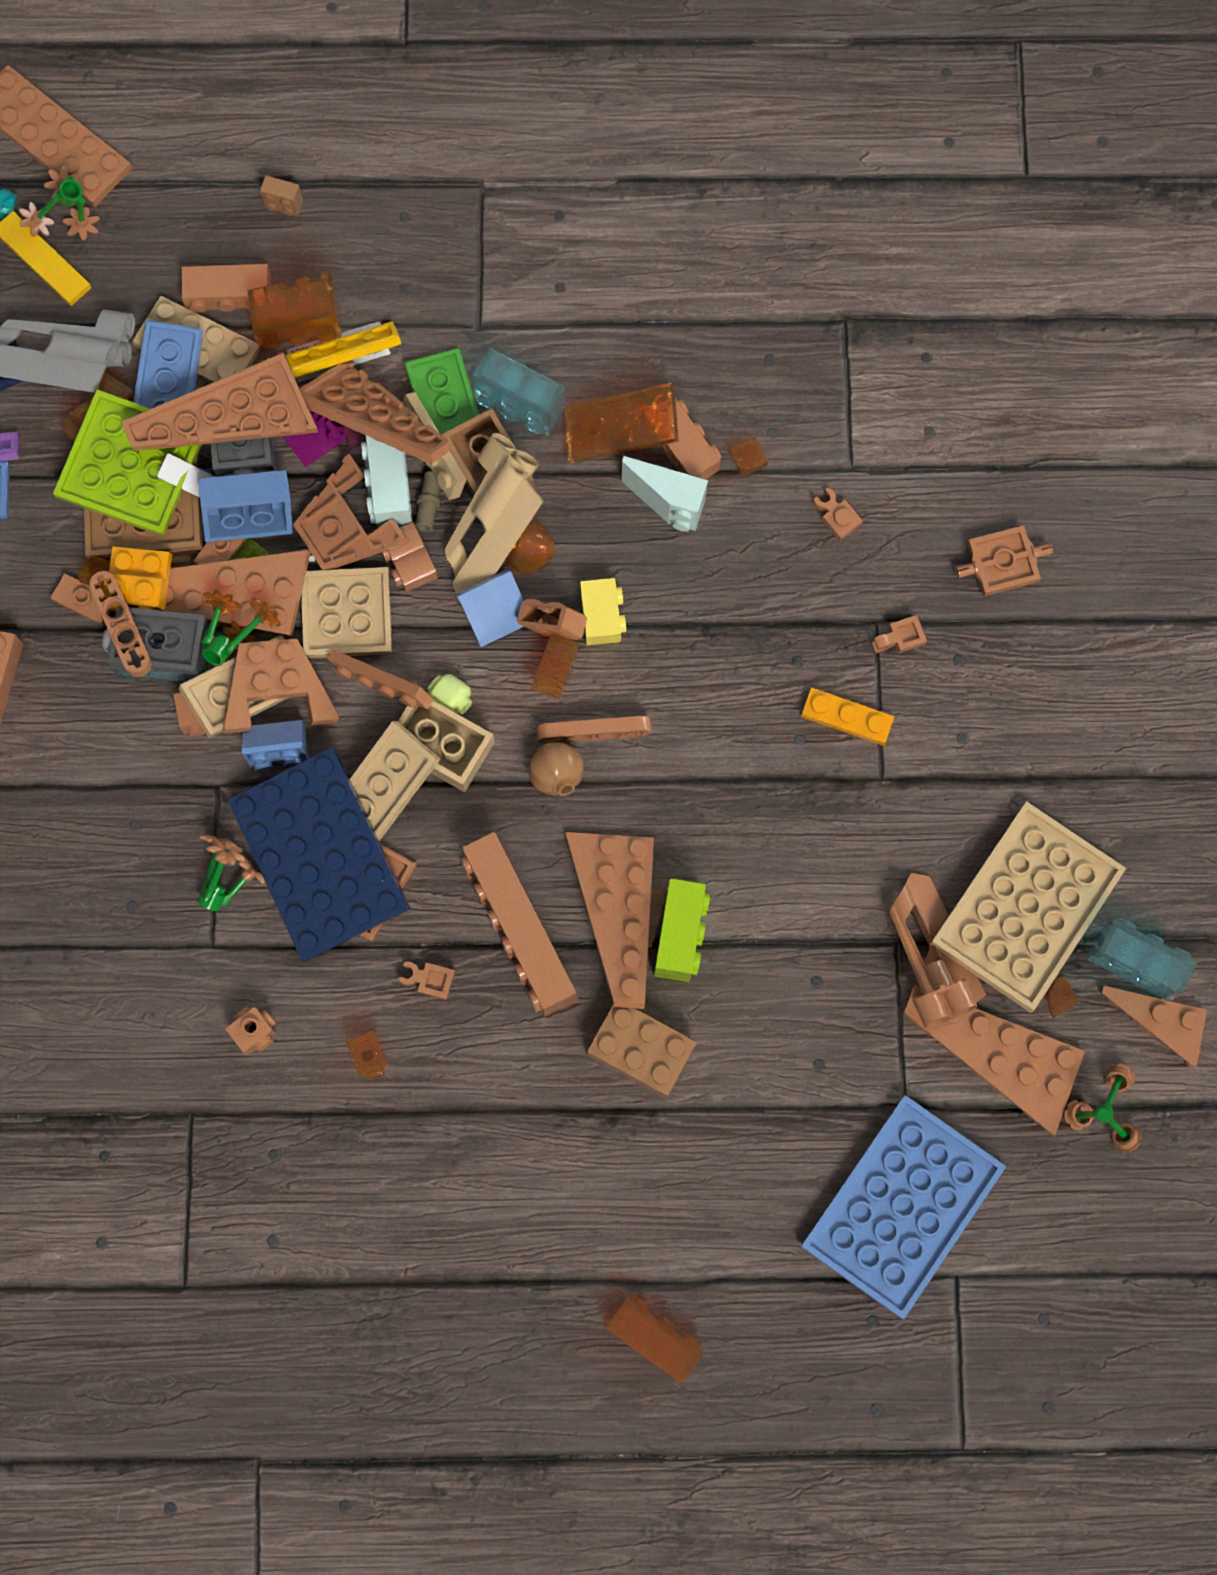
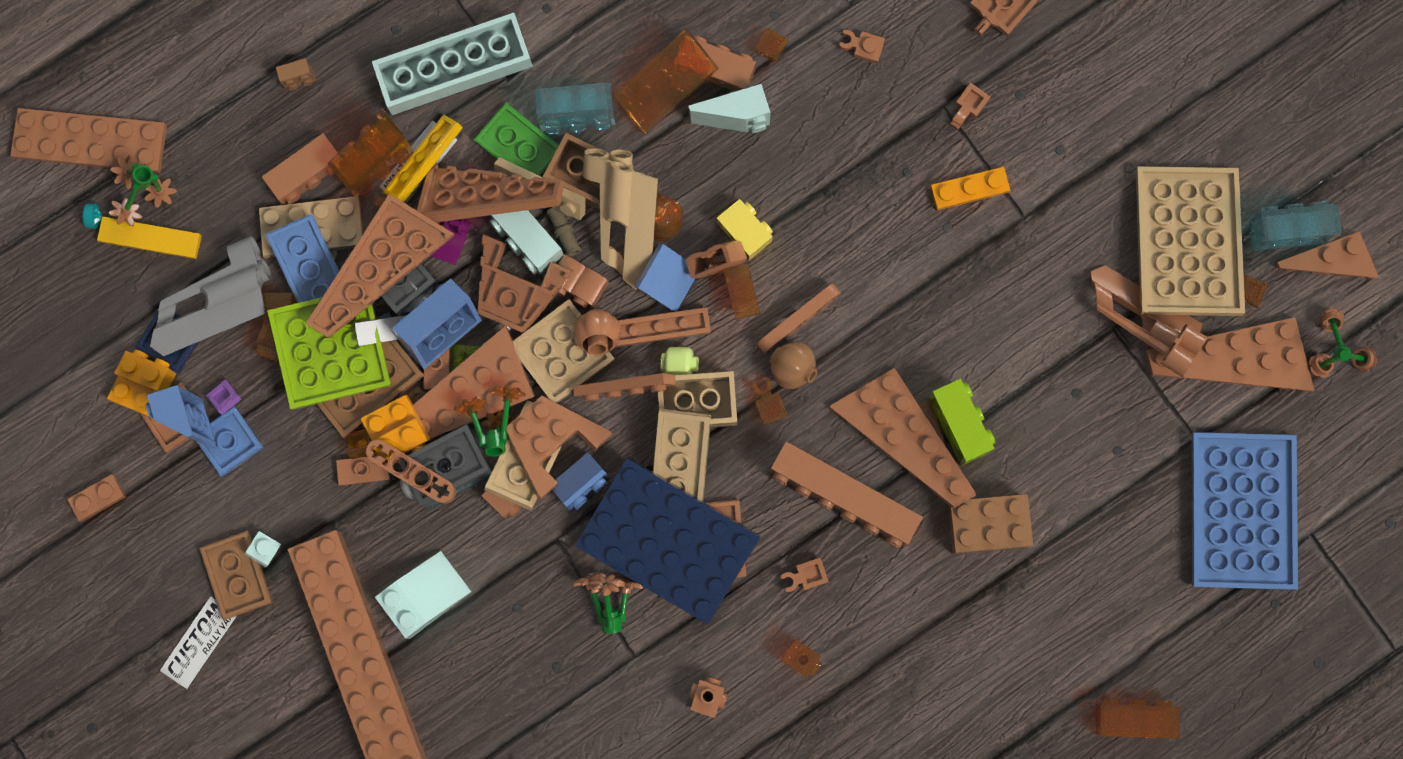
camera: 25 degrees left, 5 degrees up
(53, 752) = (423, 595): none -> light aqua slope
(391, 614) = (594, 330): none -> nougat plant
(432, 279) = (452, 64): none -> light aqua brick
(454, 650) = (664, 327): none -> nougat plate
(509, 794) = (769, 406): none -> clear orange plate

